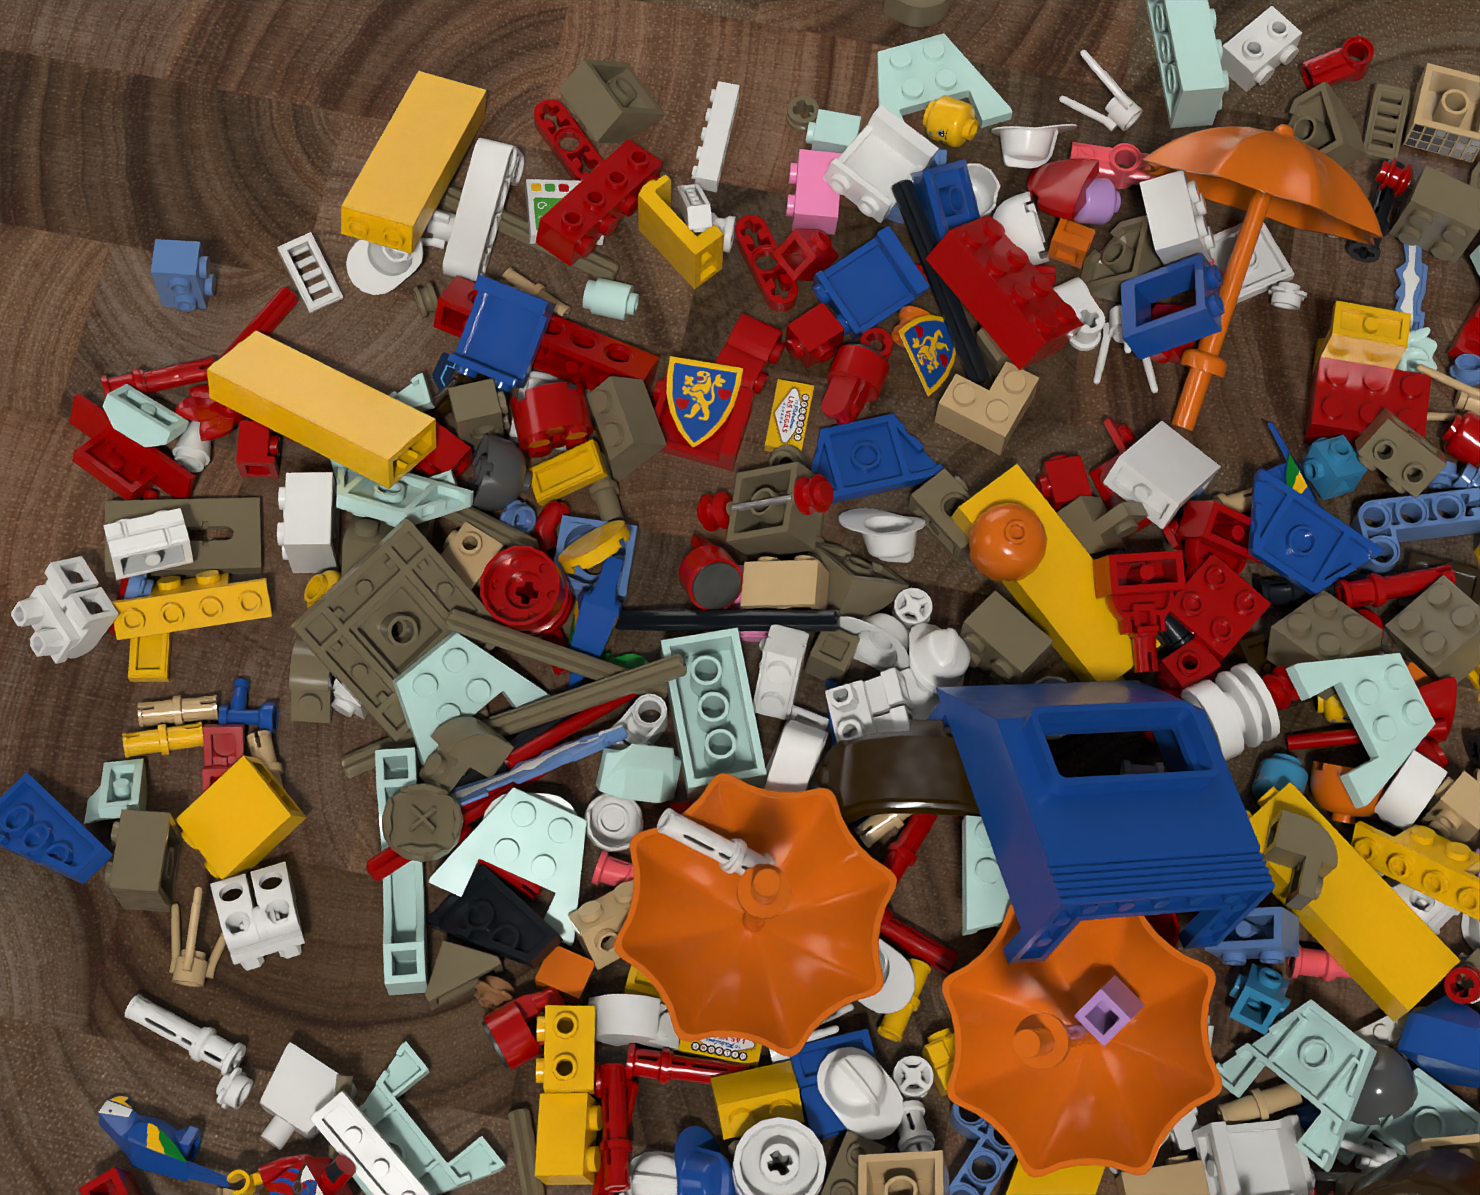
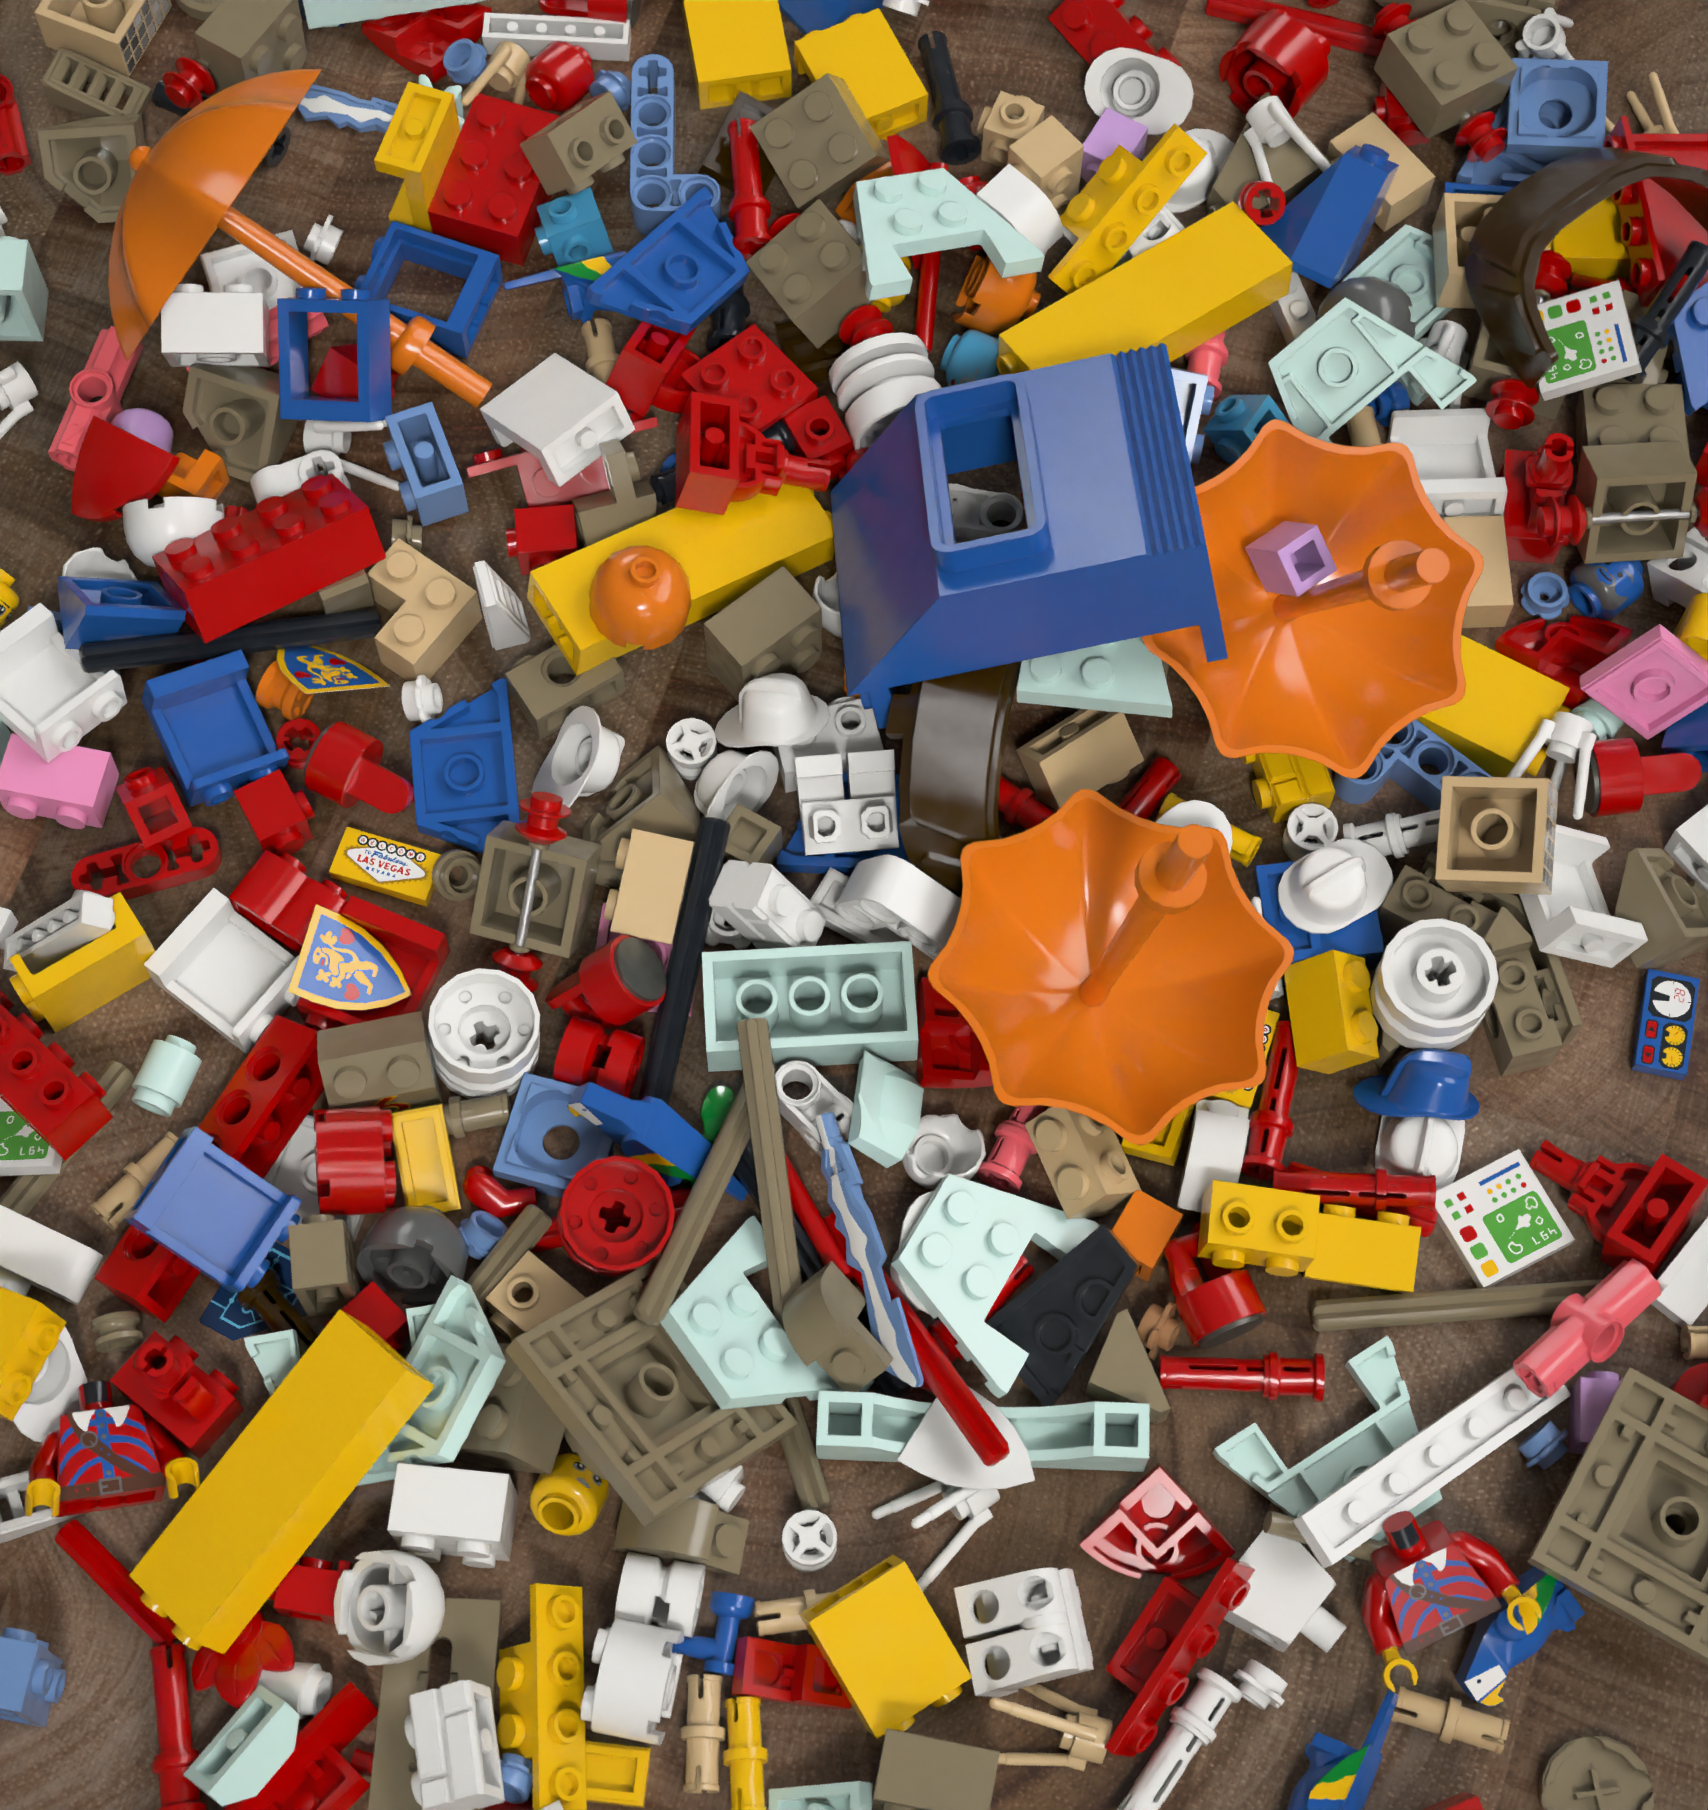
camera: 80 degrees left, 0 degrees up
(204, 654) = (633, 1681): none -> white brick
(241, 491) = (389, 1607): none -> white cylinder
(252, 1014) = (1165, 1646): none -> red bracket
(269, 667) = (660, 1593): none -> white wheel
(316, 756) = (814, 1532): none -> white wheel
(333, 302) = (105, 1459): none -> torso
(345, 1008) = (1157, 1531): none -> red brick
(354, 865) = (960, 1501): none -> white plant
(385, 341) = (178, 1393): none -> red brick
(394, 885) = (945, 1454): none -> white sticker
(422, 822) = (936, 1382): dark tan tile -> none
(467, 1079) = (1267, 1375): none -> red pin
(594, 546) = (559, 1121): yellow tile -> none
(655, 576) = (582, 1053): none -> red wheel
(663, 474) = (490, 1007): none -> white wheel
(693, 321) = (225, 971): none -> white panel
(731, 854) = (1028, 986): white pin -> none
(921, 419) = (421, 699): none -> white plate
(936, 888) = (1080, 754): none -> tan brick
(998, 453) = (501, 609): none -> white slope
(1028, 145) = (42, 504): white piece -> none
(1050, 390) = (407, 532): none -> dark tan plate
(1109, 391) = (426, 463): none -> medium blue brick
(1255, 405) = (476, 266): none -> blue window
(1305, 848) = (1101, 323): dark tan brick -> none

